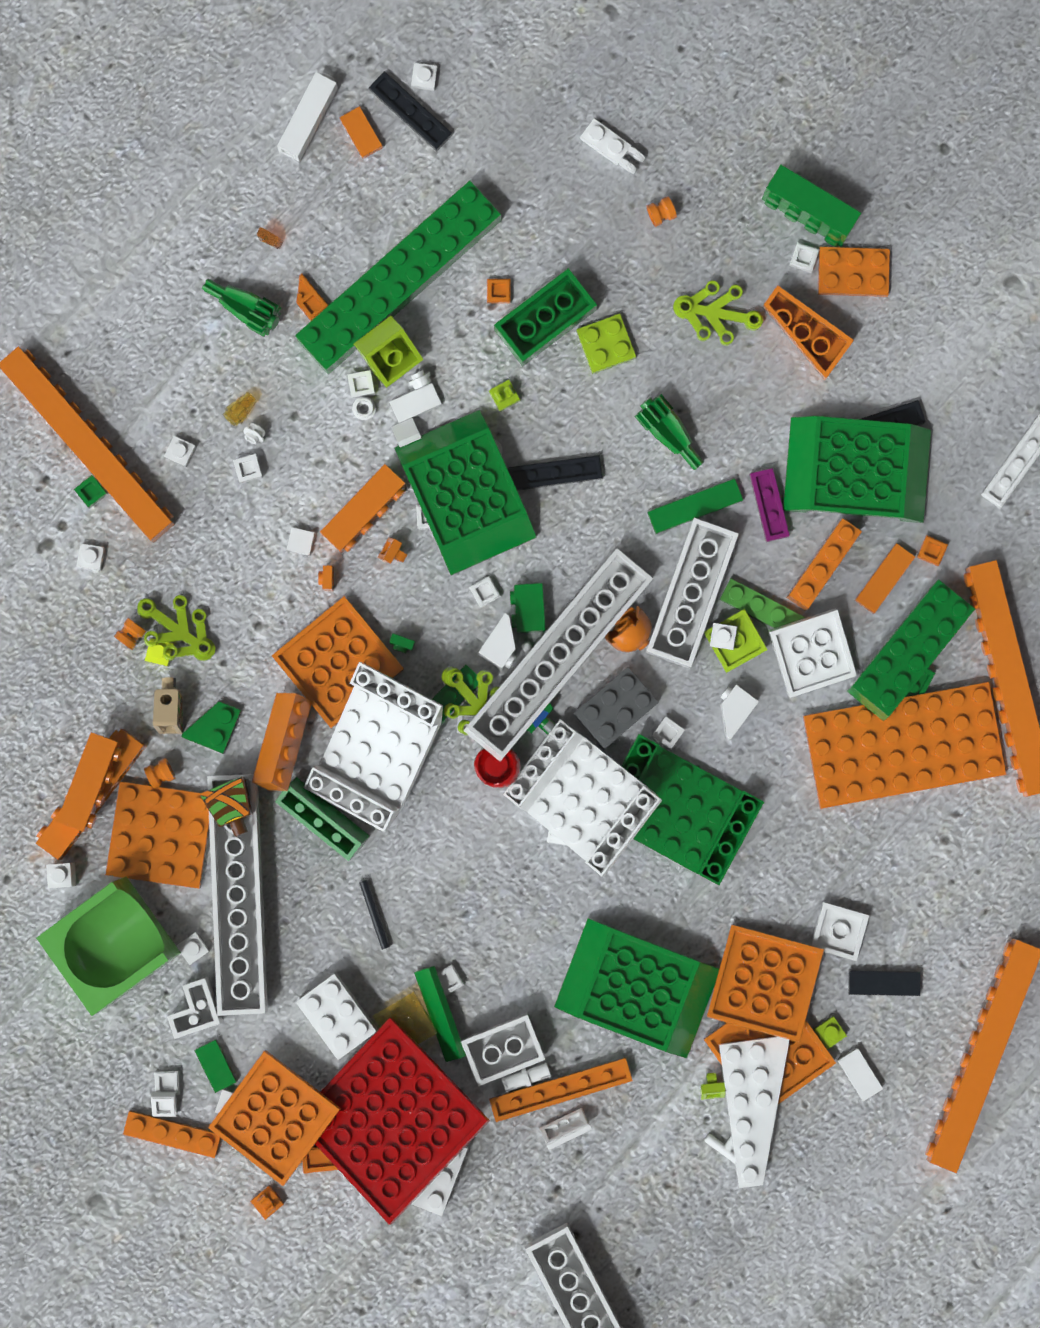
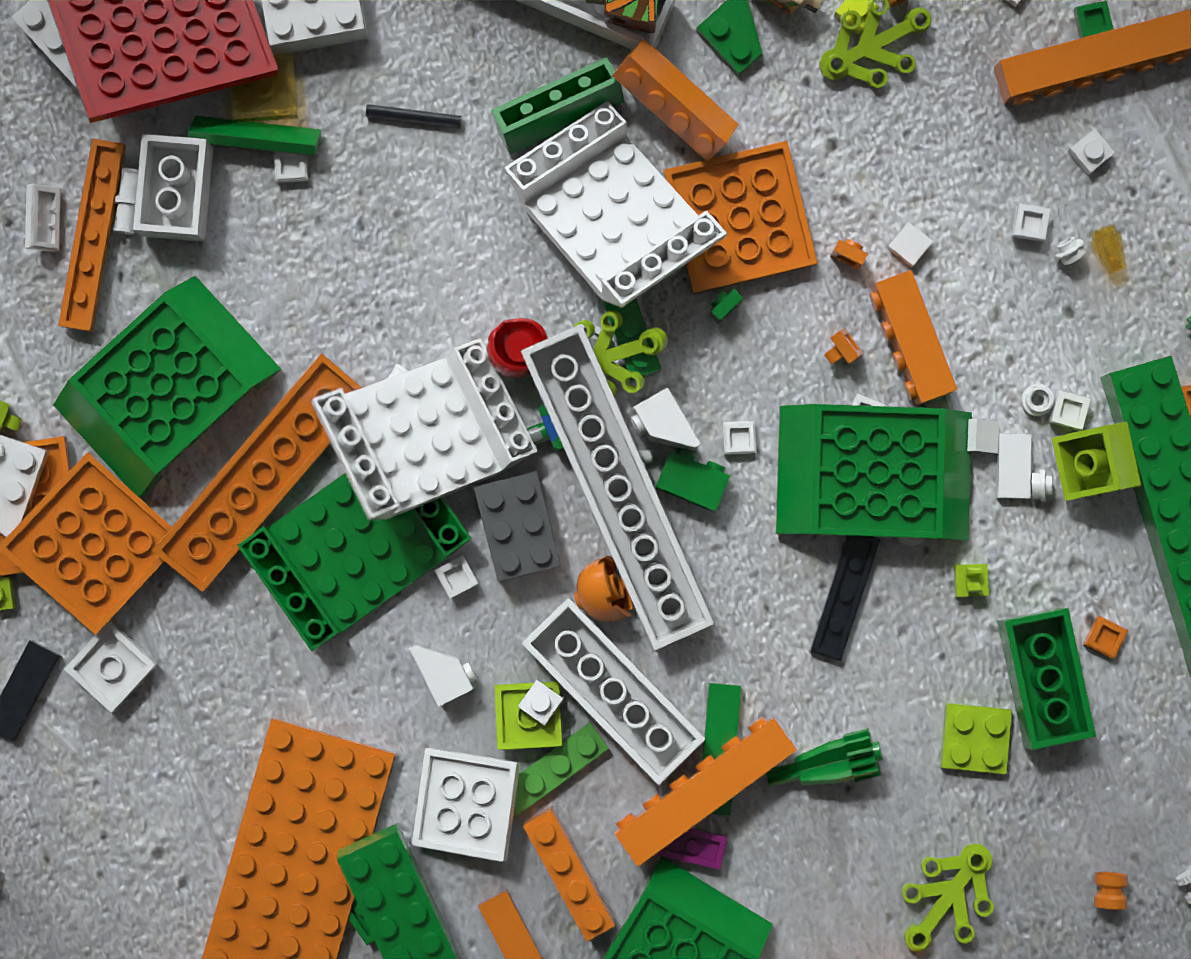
camera: 115 degrees right, 0 degrees up
(667, 897) = (253, 479): none -> orange plate
(727, 502) = (704, 791): none -> orange brick

